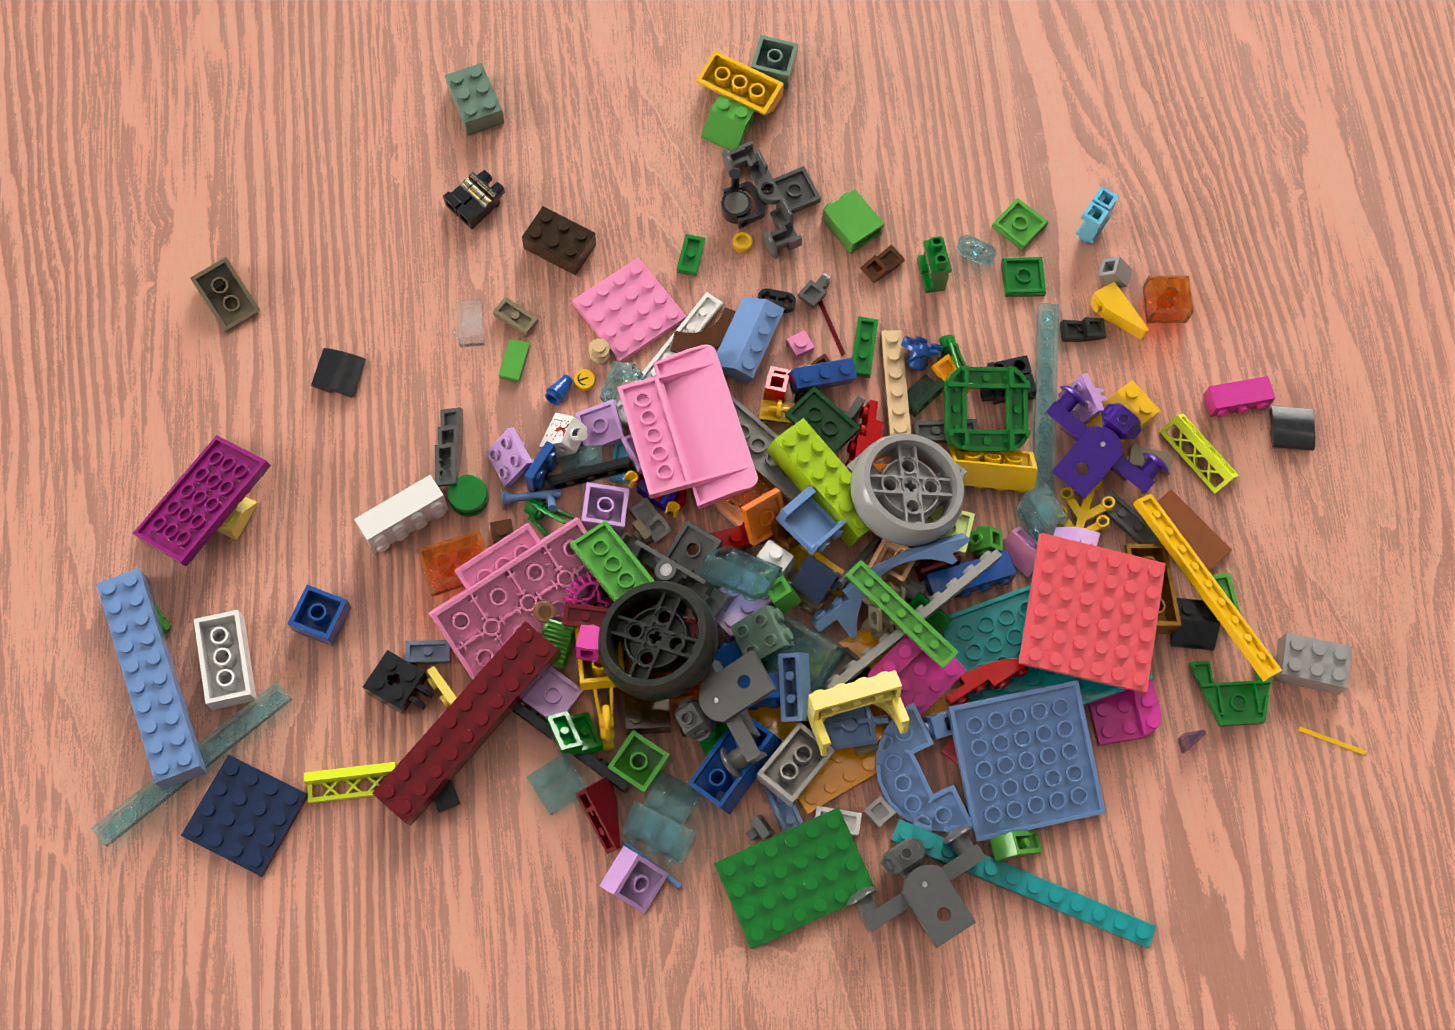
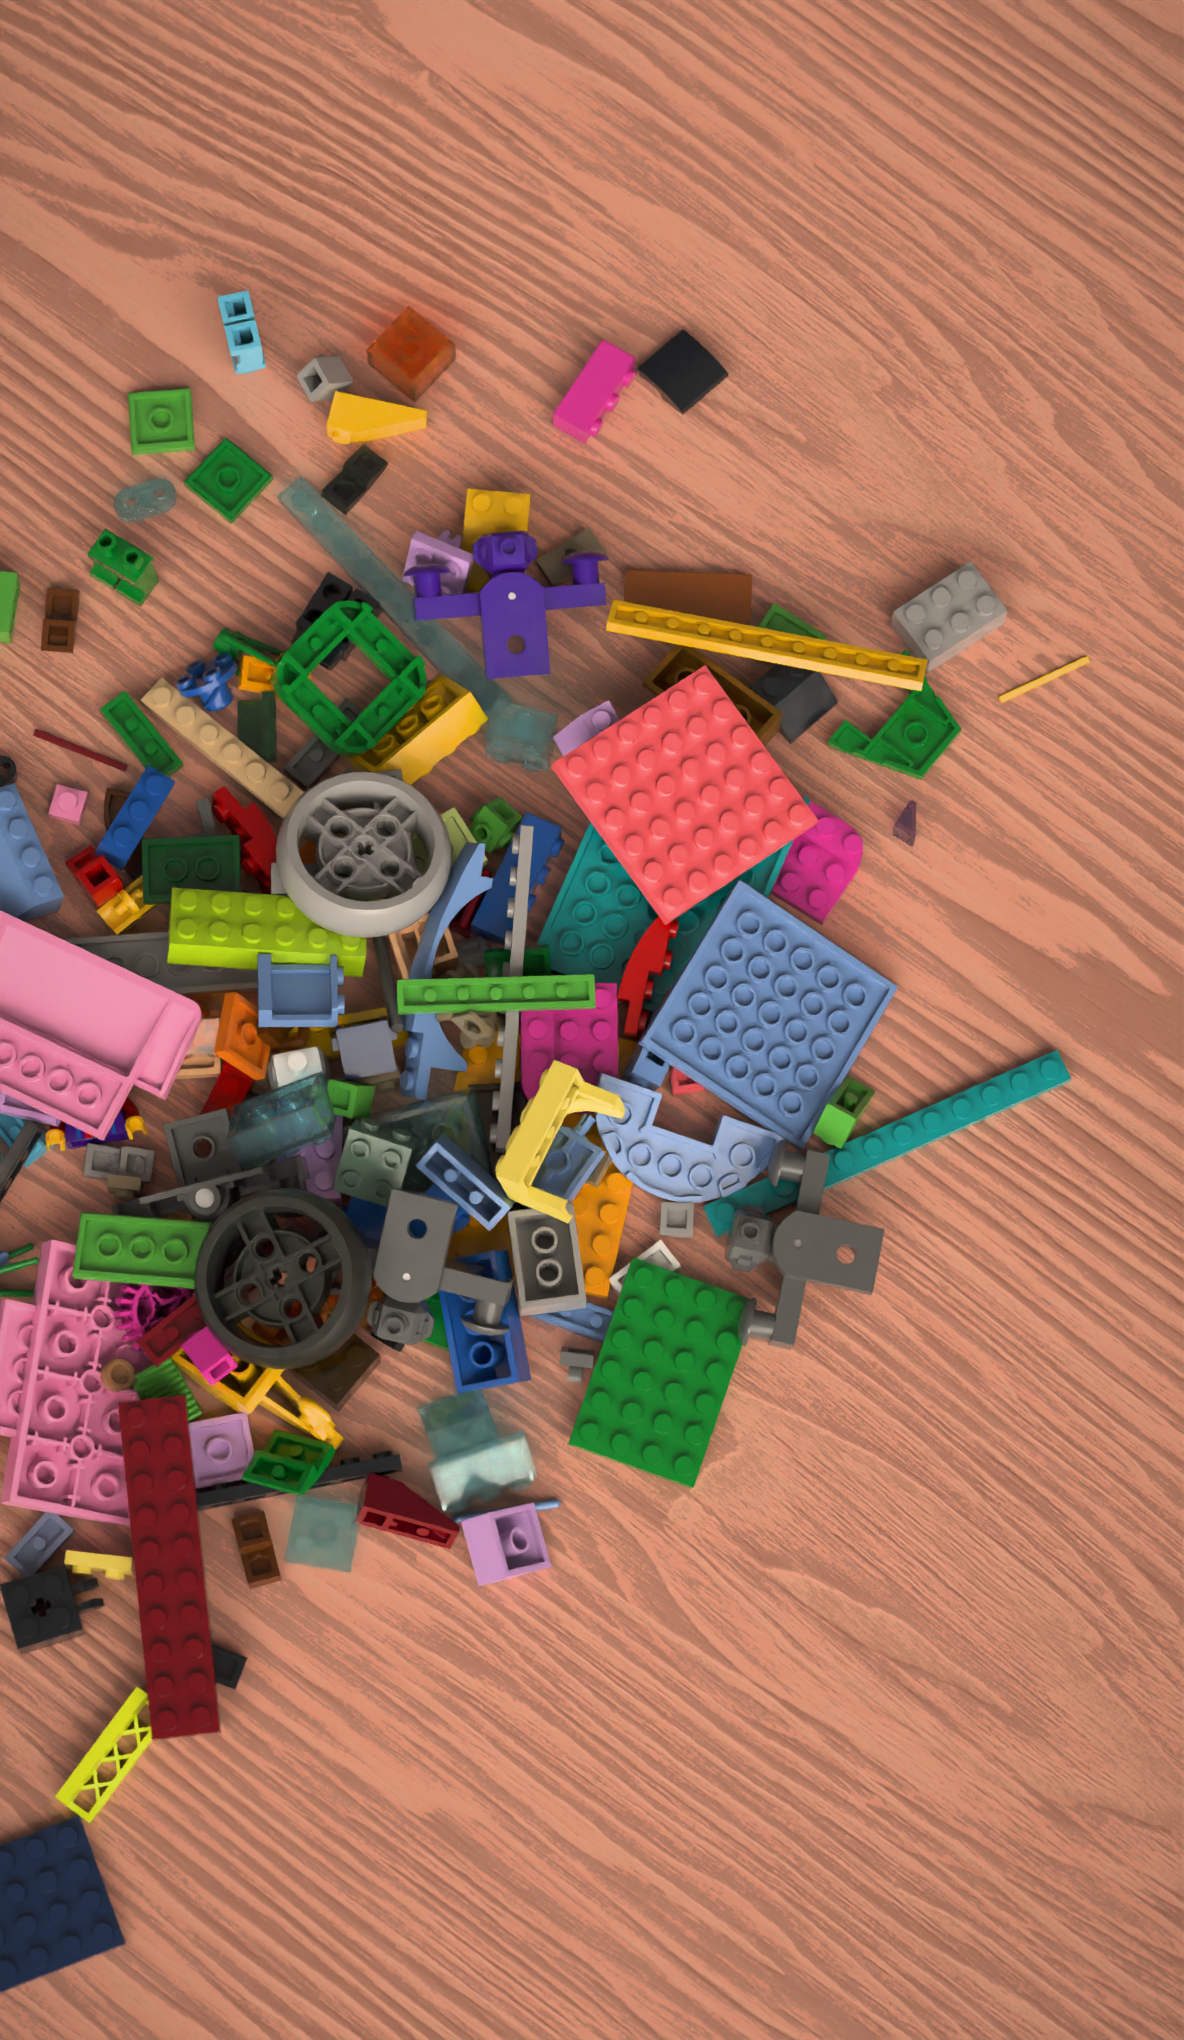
camera: 45 degrees left, 5 degrees up
(519, 758) = (256, 1549): none -> reddish brown slope
(603, 504) = (56, 1198): lavender brick -> none
(639, 761) = (385, 1422): bright green slope -> none
(814, 292) = (20, 730): dark grey plate -> none
(1021, 550) = (540, 795): bright pink panel -> none
(1085, 513) = (564, 688): yellow plant -> none
(1130, 521) = (613, 650): dark grey plate -> none
(1204, 447) = (610, 488): neon yellow fence -> none

